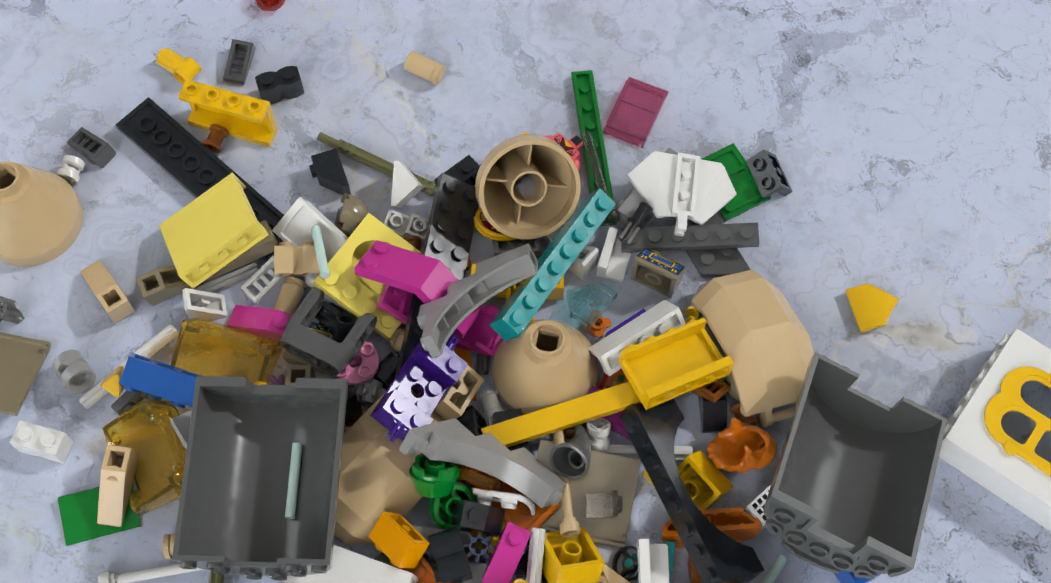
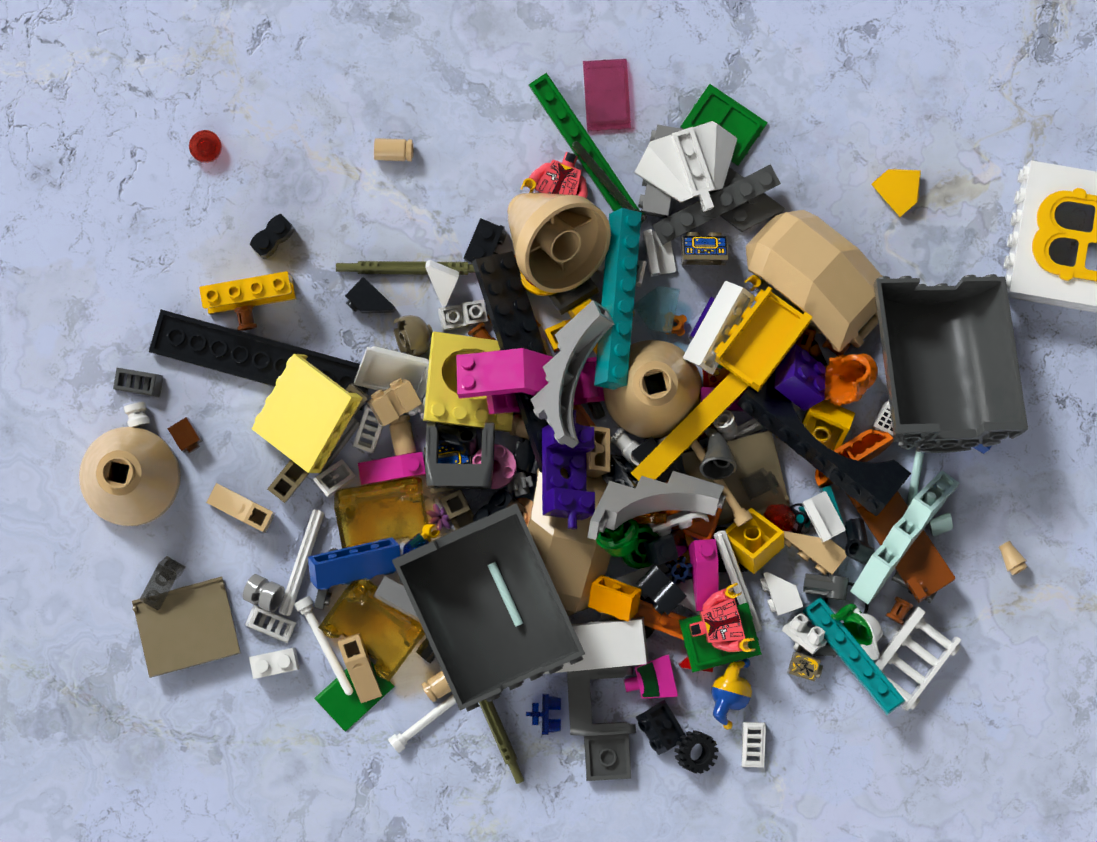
camera: 25 degrees left, 20 degrees up
(54, 390) = (287, 633): none -> white slope
(100, 205) = (185, 435): none -> reddish brown brick
(103, 406) = (305, 607): none -> white piece
(112, 380) = (302, 585): yellow slope -> none
(180, 67) = (169, 263): yellow piece -> none
(240, 45) = (212, 211): dark grey slope -> none
(320, 252) = (414, 389): light aqua bar -> none
(609, 549) = (780, 516): none -> clear red plate
(635, 223) = (664, 218): black axle -> none
(694, 421) = (801, 378): none -> dark purple brick
(768, 174) = (757, 103): black bracket -> none

